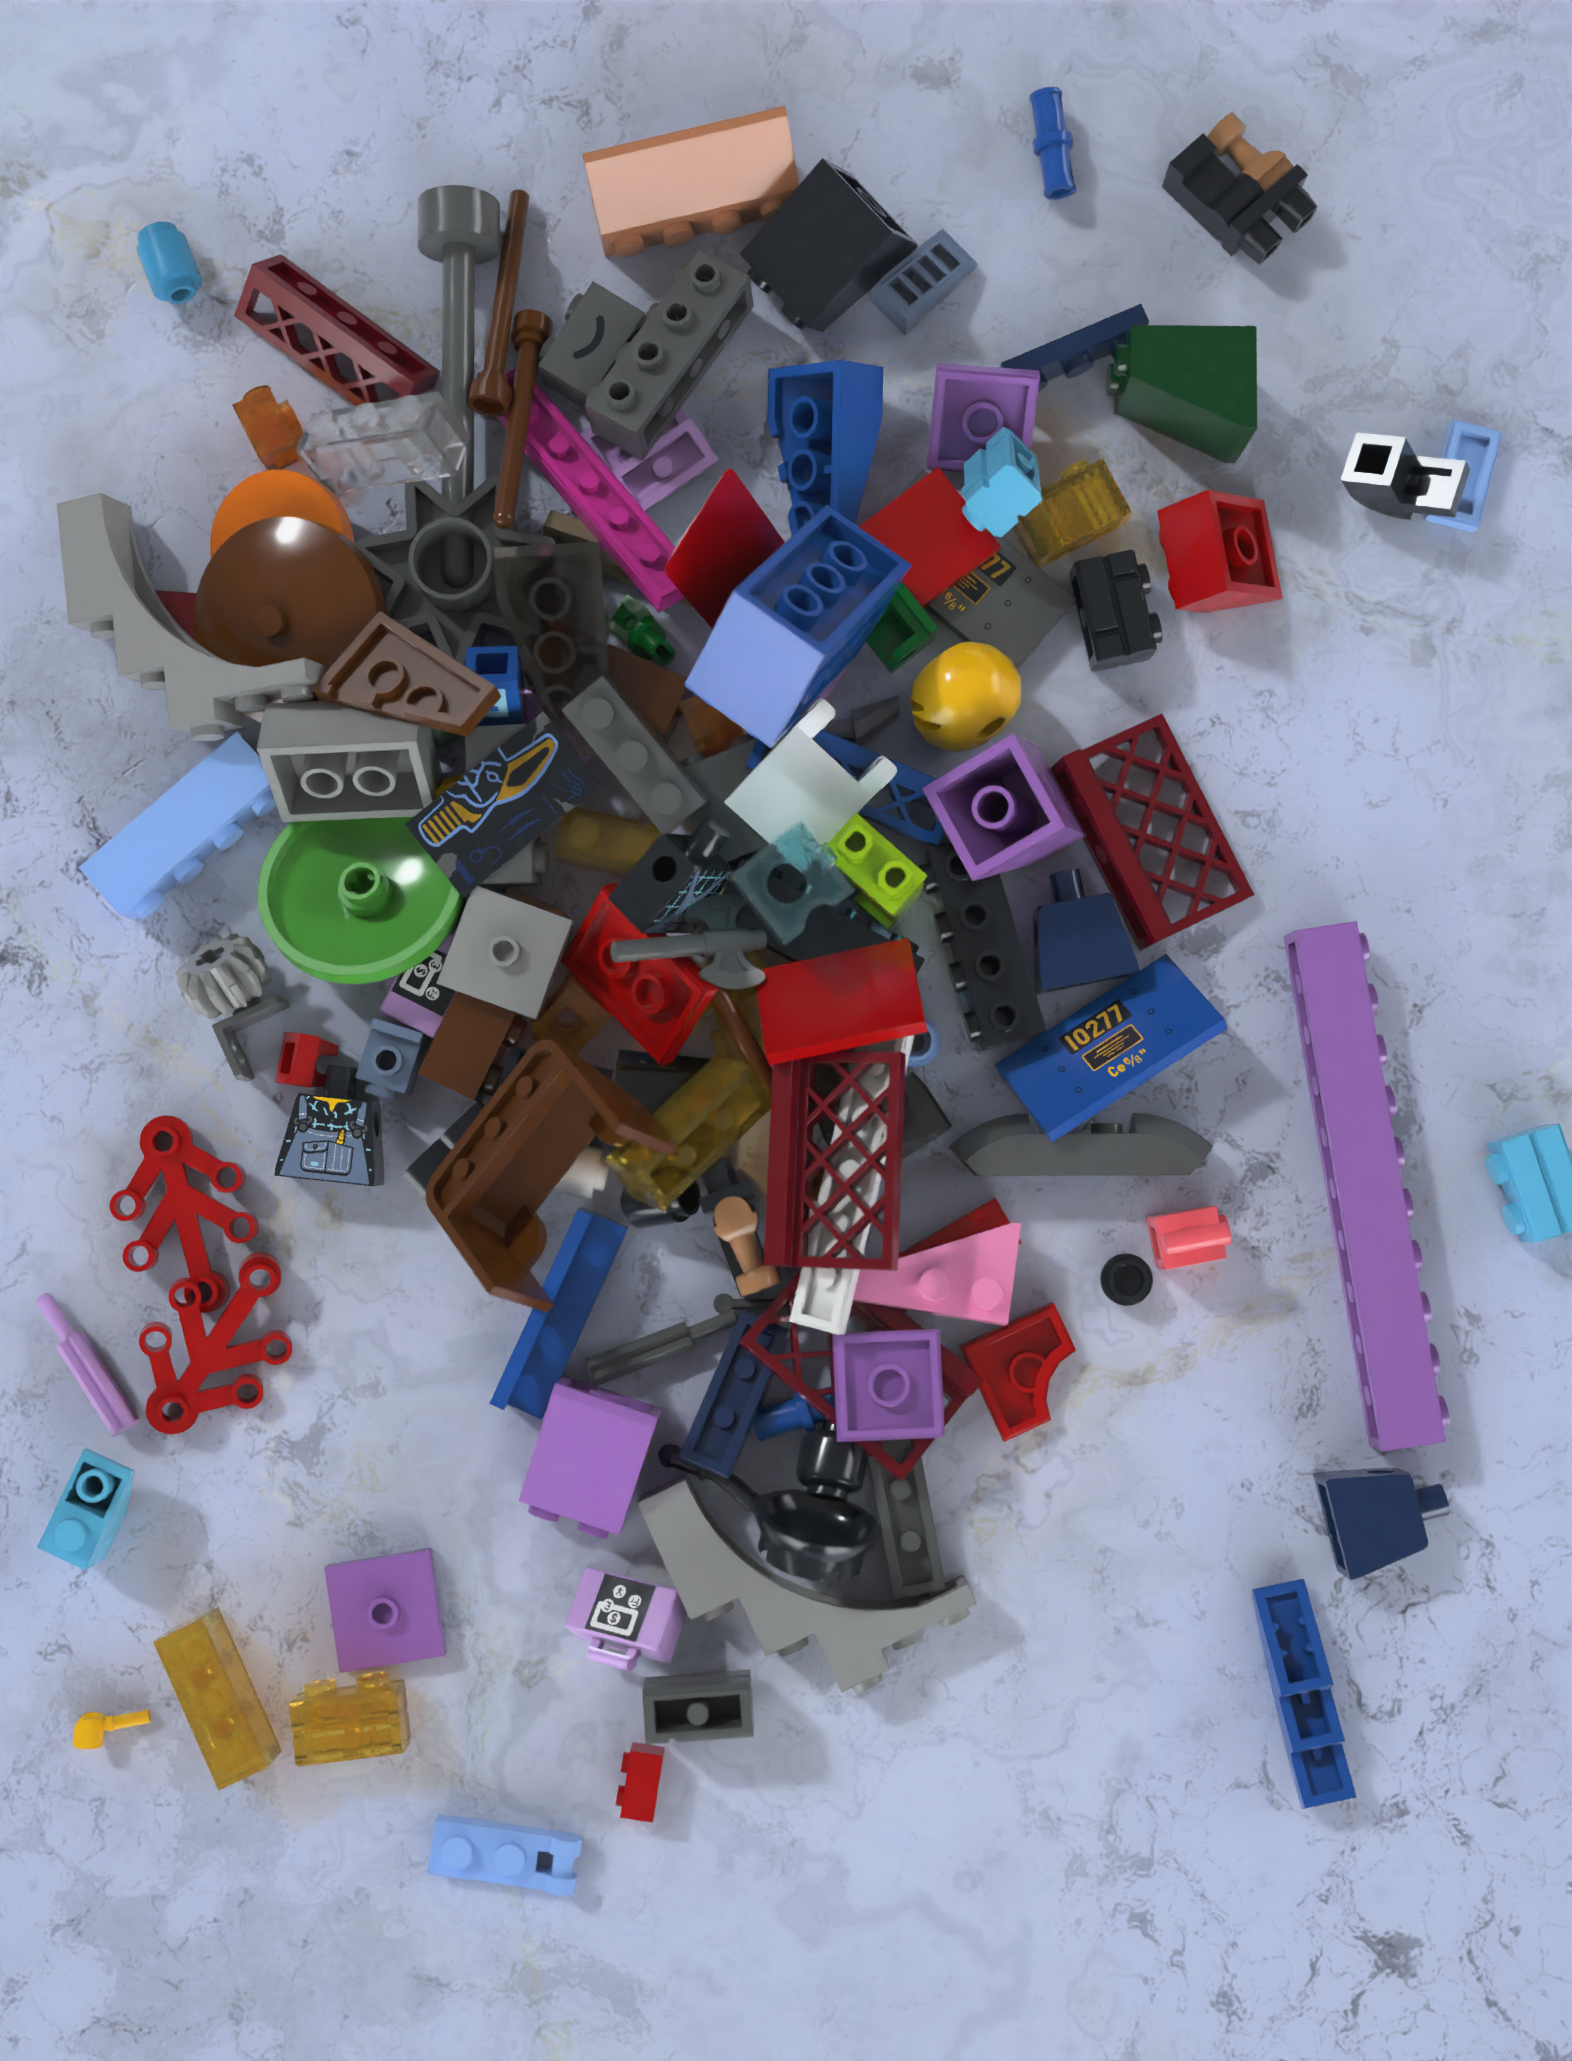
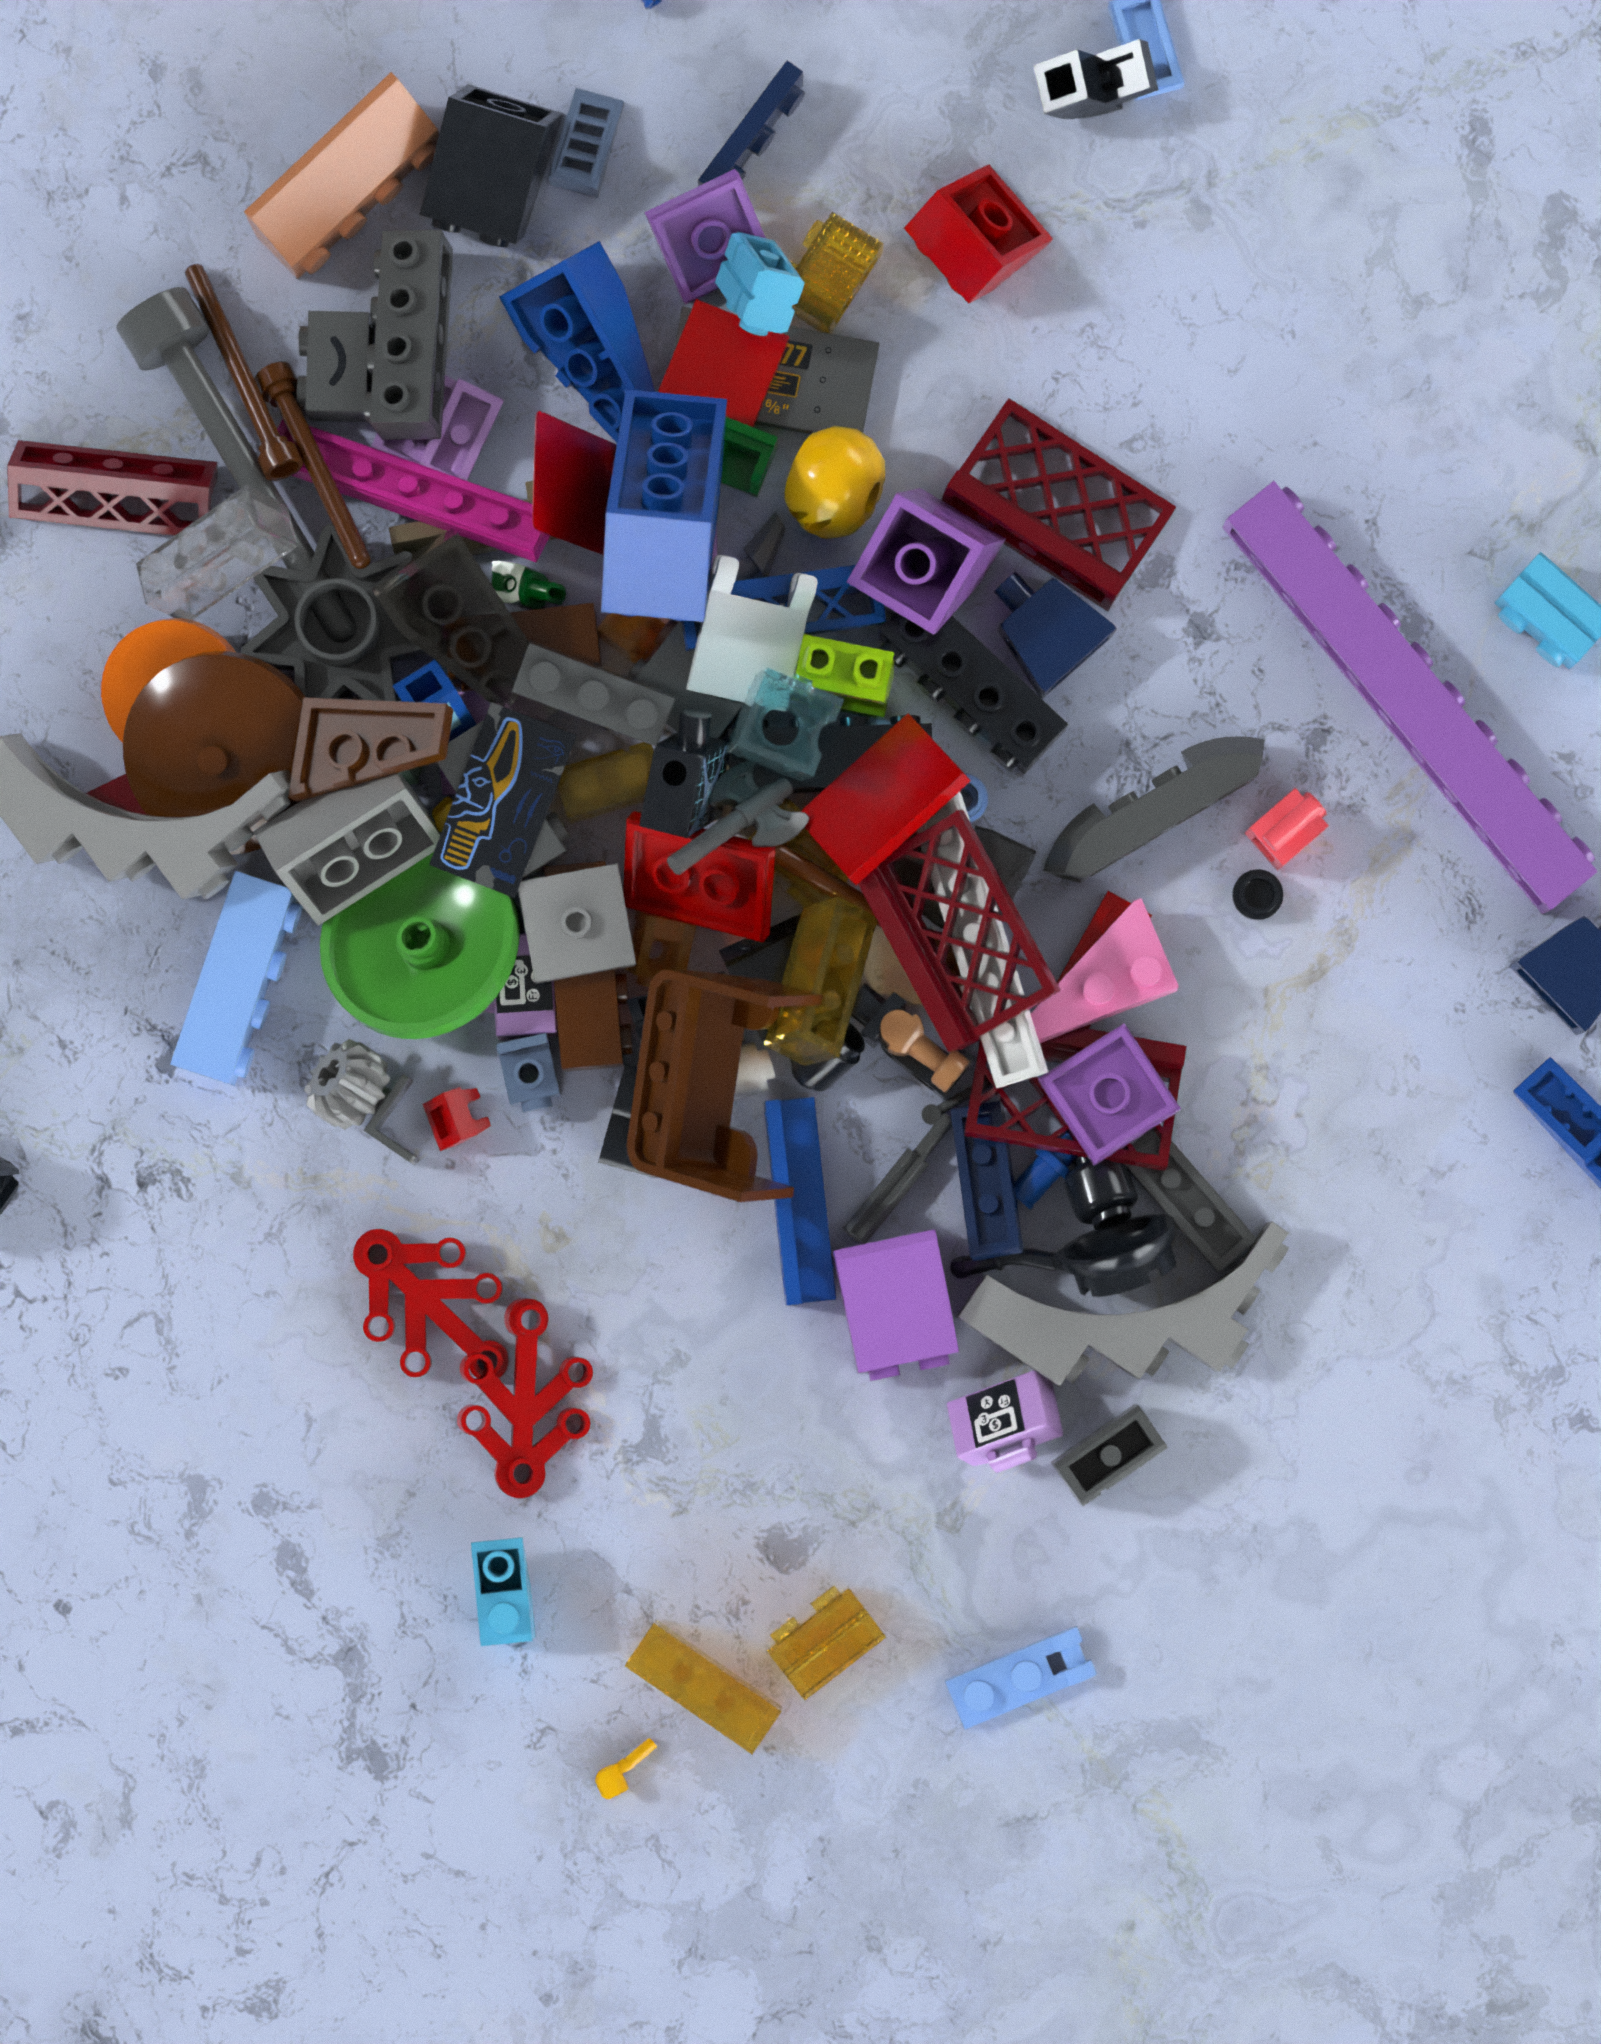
camera: 30 degrees left, 0 degrees up
(89, 1371) = (429, 1484): lavender axle -> none
(270, 427) = (104, 595): clear orange brick -> none
(334, 1135) = (519, 1163): torso -> none
(385, 1610) = (799, 1536): medium lavender plate -> none
(642, 1781) = (1099, 1550): red piece -> none
(1018, 1366) = (1210, 1021): red tile -> none
(1110, 1047) = (1129, 707): blue tile -> none
(1115, 610) = (917, 333): black brick -> none
(1189, 384) = (869, 106): dark green slope -> none

